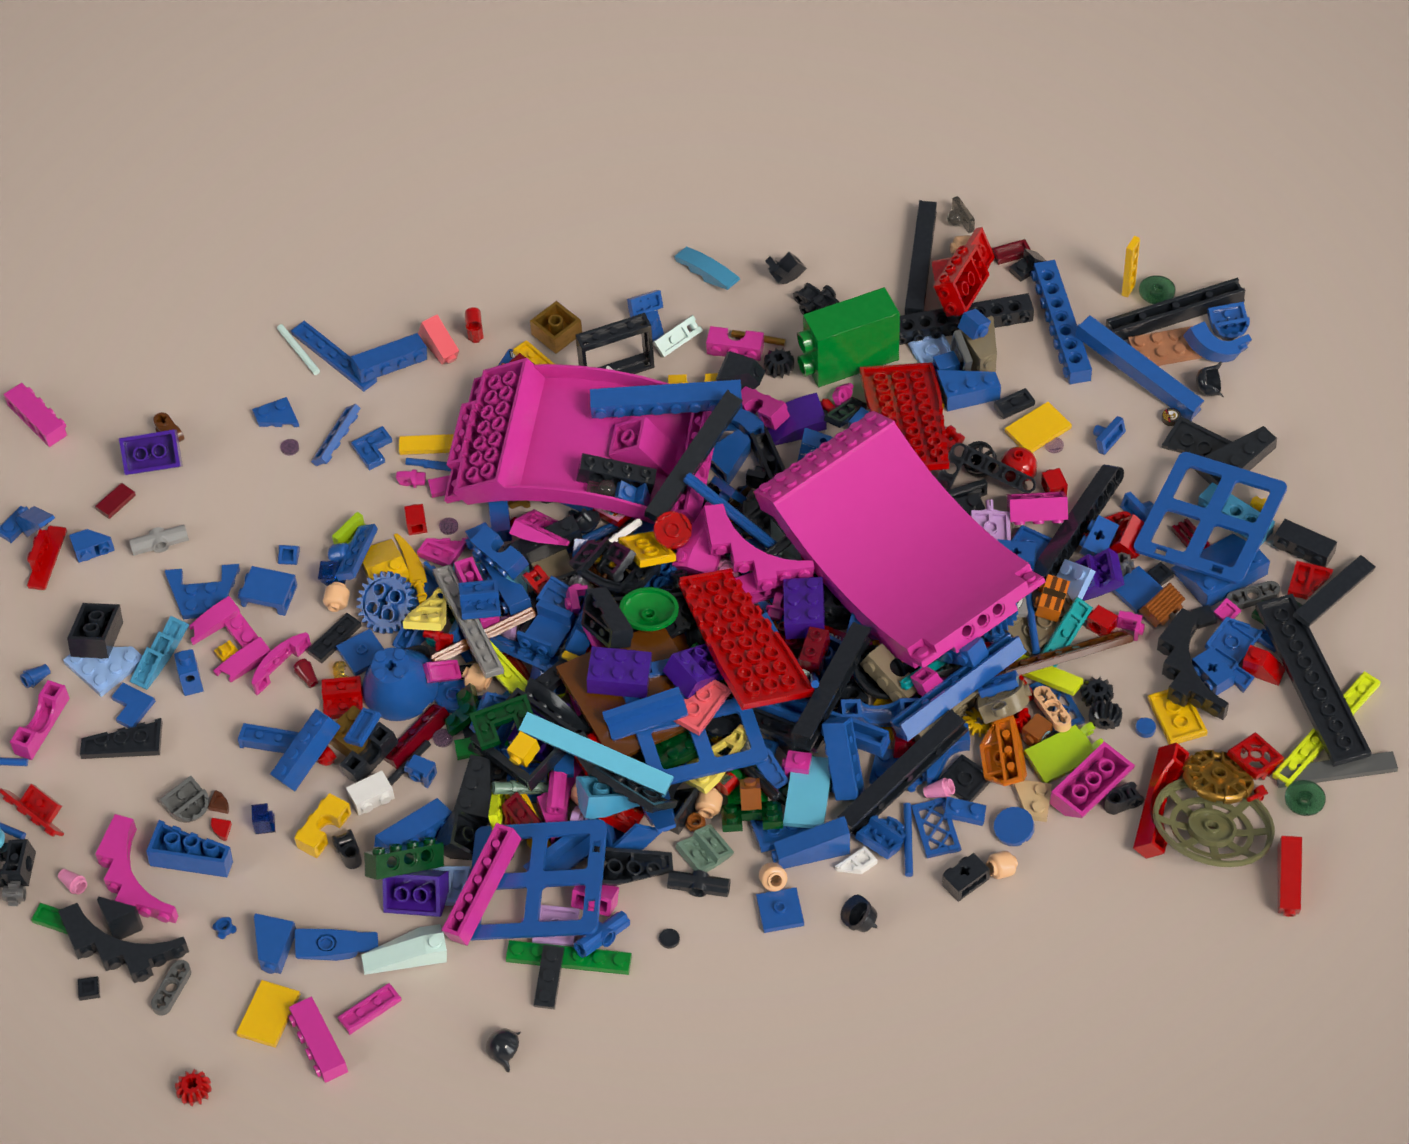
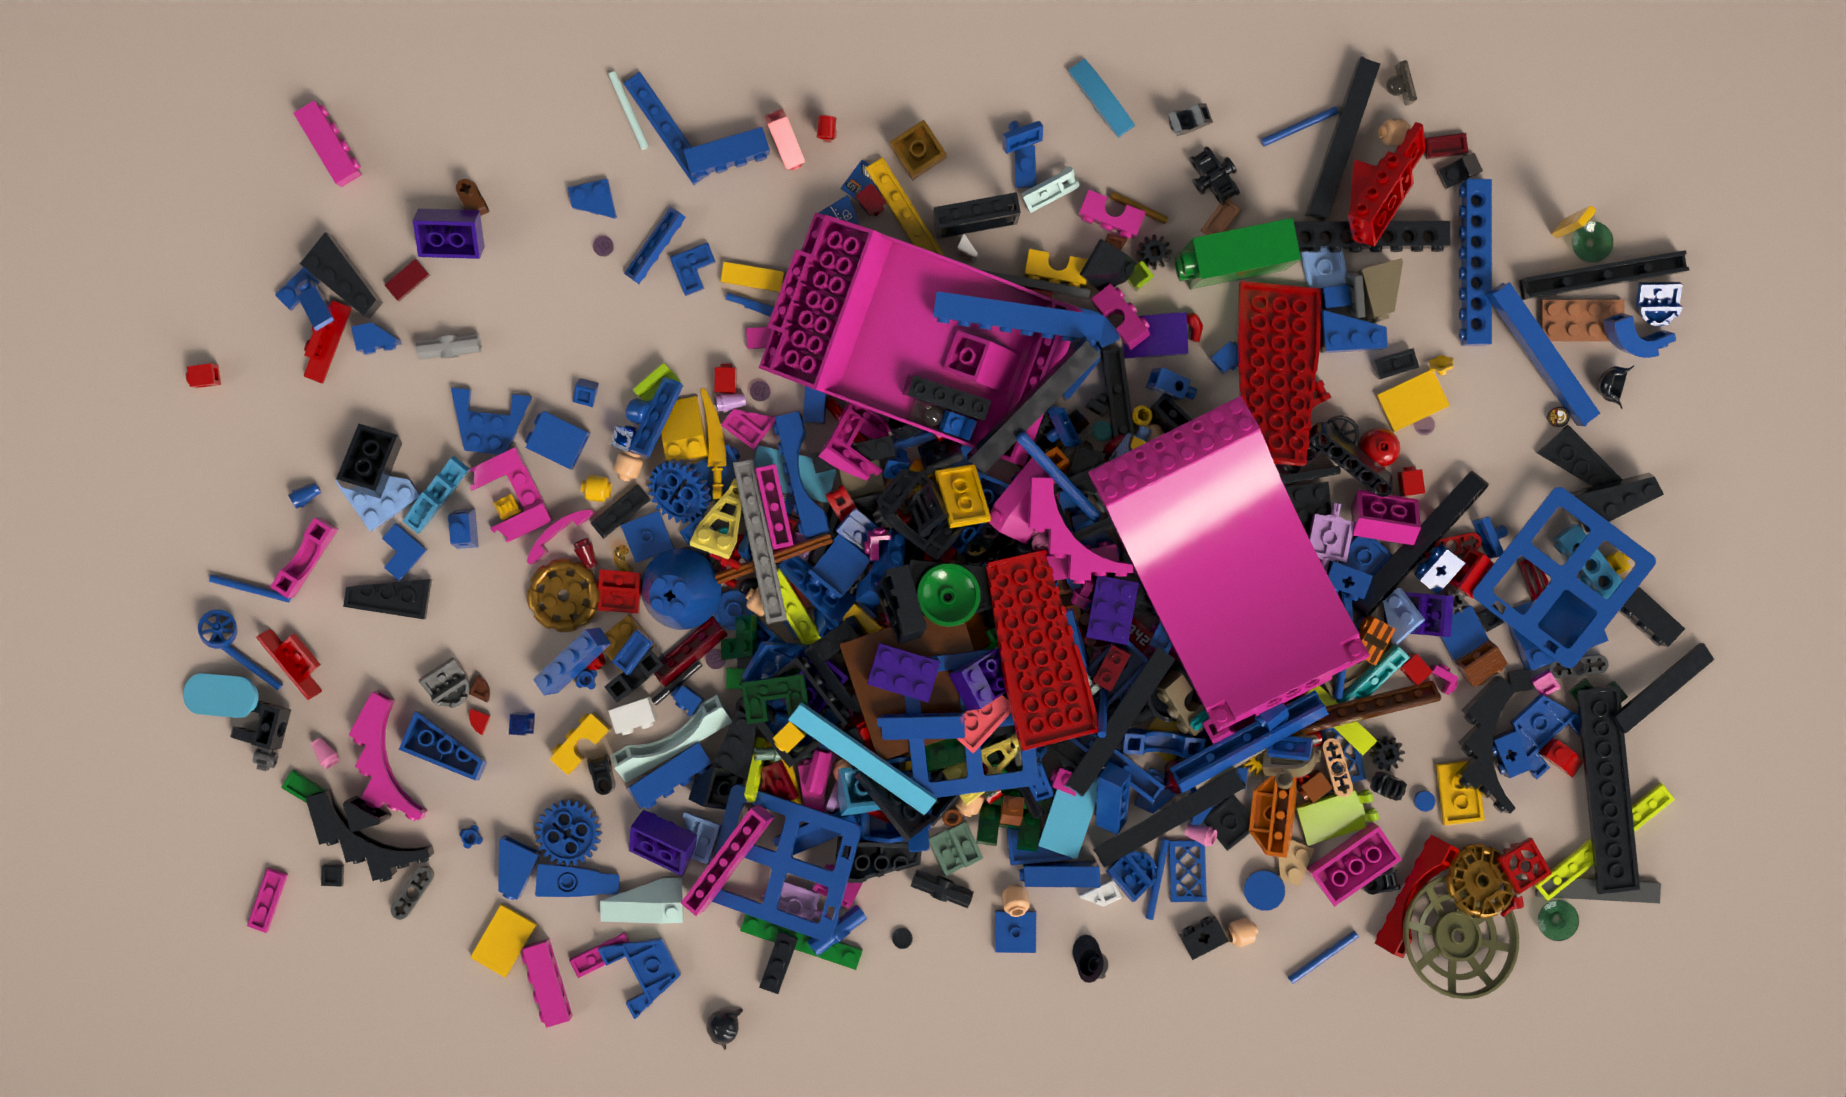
camera: 15 degrees right, 35 degrees up
(24, 1023) = (267, 900): none -> dark pink tile
(54, 499) = (334, 269): none -> black wedge
(189, 1094) = (416, 1004): red gear -> none
(265, 738) = (537, 630): blue container -> none
(287, 701) = (551, 595): none -> pearl gold plate
(309, 619) = (596, 488): none -> yellow head
(321, 769) = (581, 682): none -> blue plate
(321, 902) = (559, 849): none -> blue gear
(404, 859) = (653, 819): dark green brick -> none
(412, 477) = (733, 324): dark pink piece -> none
(419, 534) = (729, 401): none -> lavender cone
(421, 1004) = (651, 965): none -> blue wing
(442, 671) = (724, 594): dark pink tile -> none
(443, 779) = (637, 759): none -> light aqua arch
(479, 599) = (775, 523): blue slope -> none
(509, 562) = (793, 455): blue arch -> none
(672, 530) = (993, 488): red tile -> none
(772, 381) = (1140, 276): none -> lime panel
(842, 393) = (1214, 309): dark pink piece -> none
(844, 412) = (1211, 341): black tile -> none
(882, 260) = (1299, 126): none -> blue bar
(964, 811) = (1220, 862): blue plate -> none
(974, 324) = (1380, 276): blue brick -> none
(1055, 398) = (1441, 364): none -> yellow plant
(1088, 876) = (1323, 957): none -> blue bar
(1109, 435) = (1485, 429): blue tile -> none
(1289, 875) = (1517, 1005): red slope -> none
(1307, 579) = (1638, 660): red wing -> none

